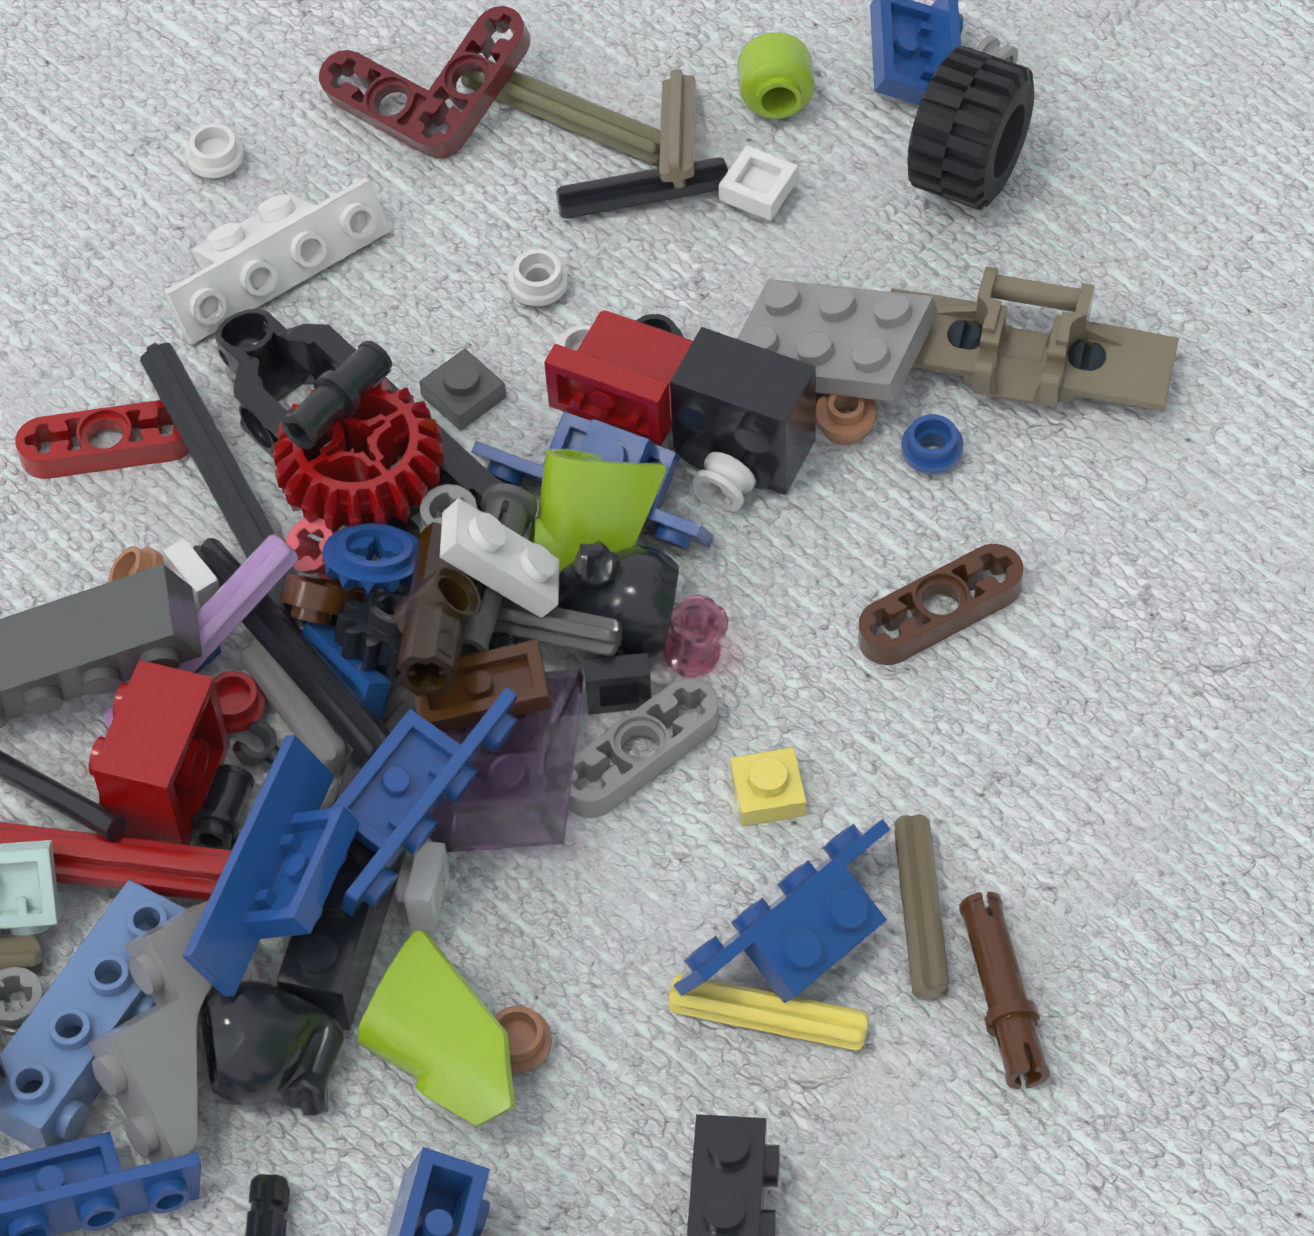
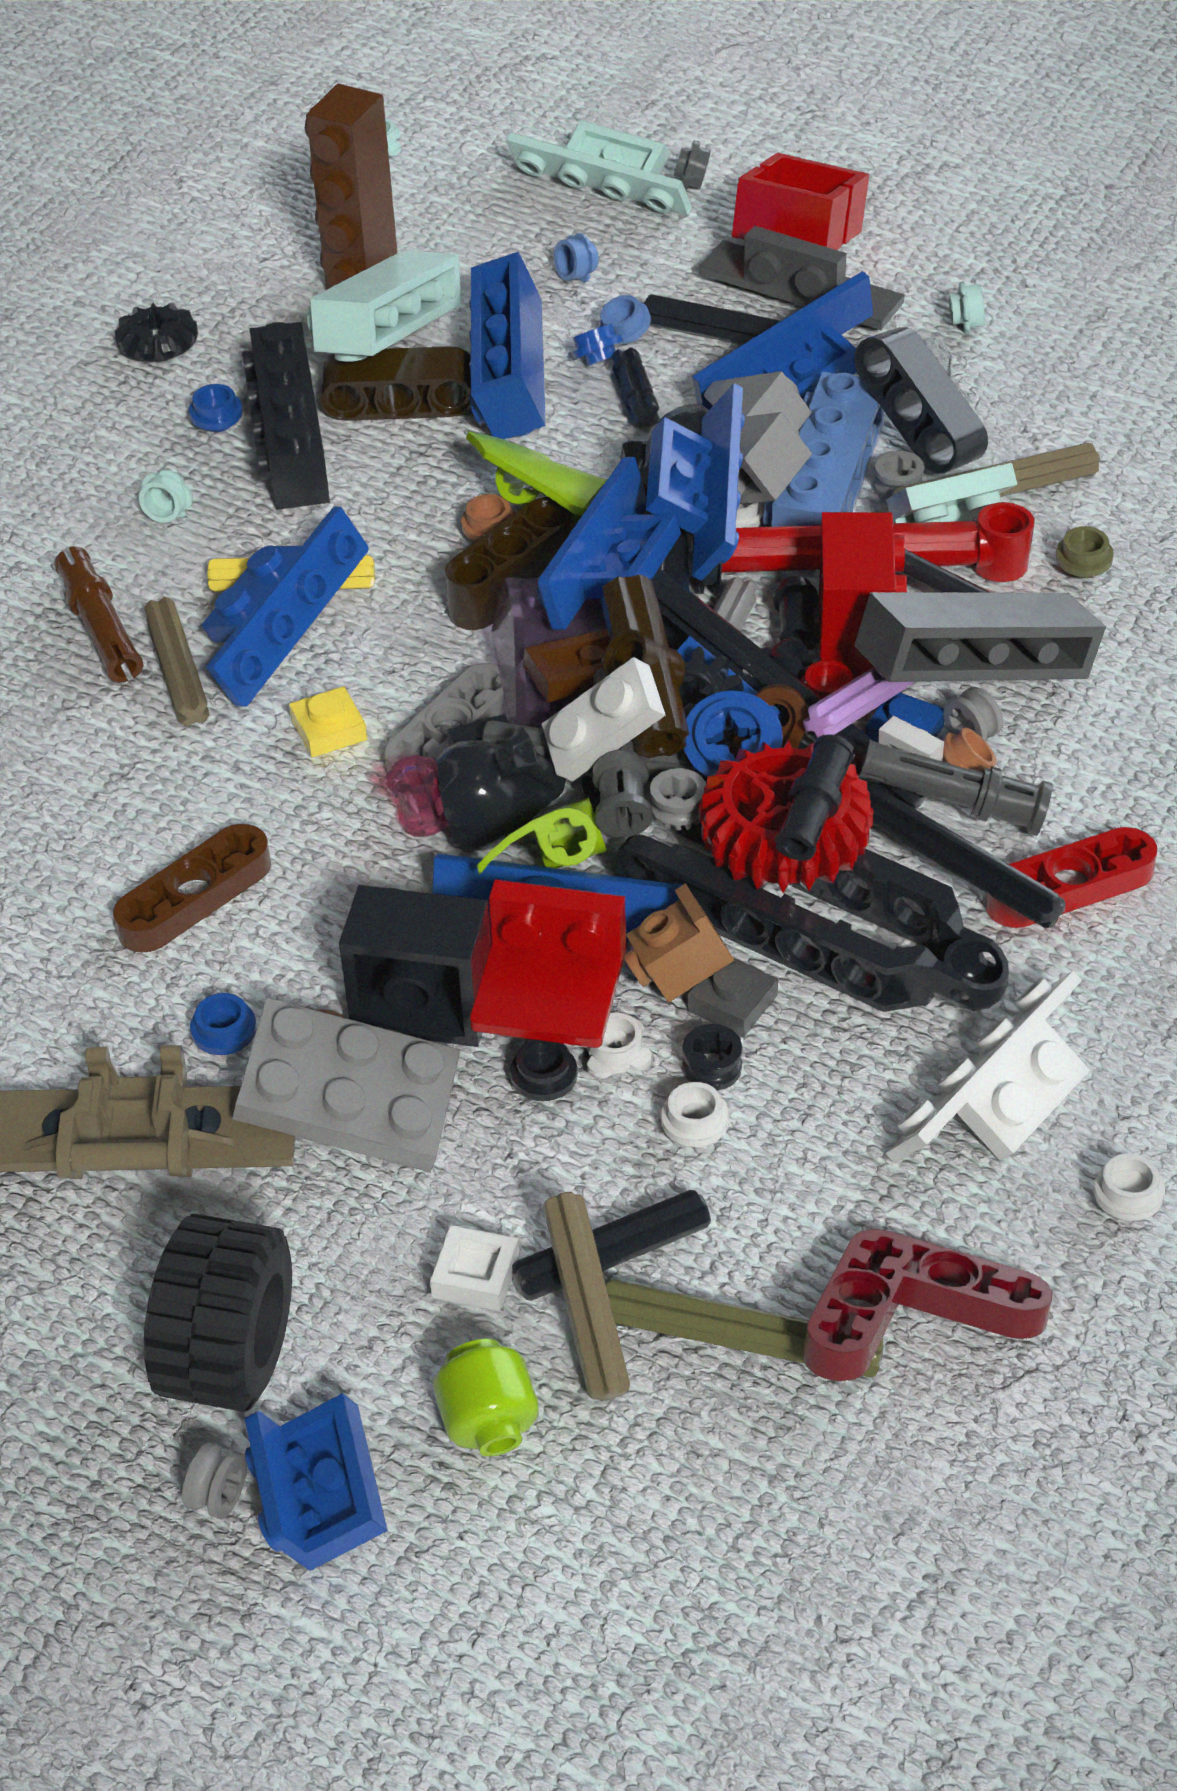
camera: 165 degrees right, 10 degrees down
(146, 515) = (983, 792): none -> dark grey pin
(489, 415) = (676, 947): none -> medium nougat brick
(503, 314) = (712, 1039): none -> black bush
(531, 918) = (514, 549): none -> dark brown beam
(901, 1172) = (157, 504): none -> light aqua plate

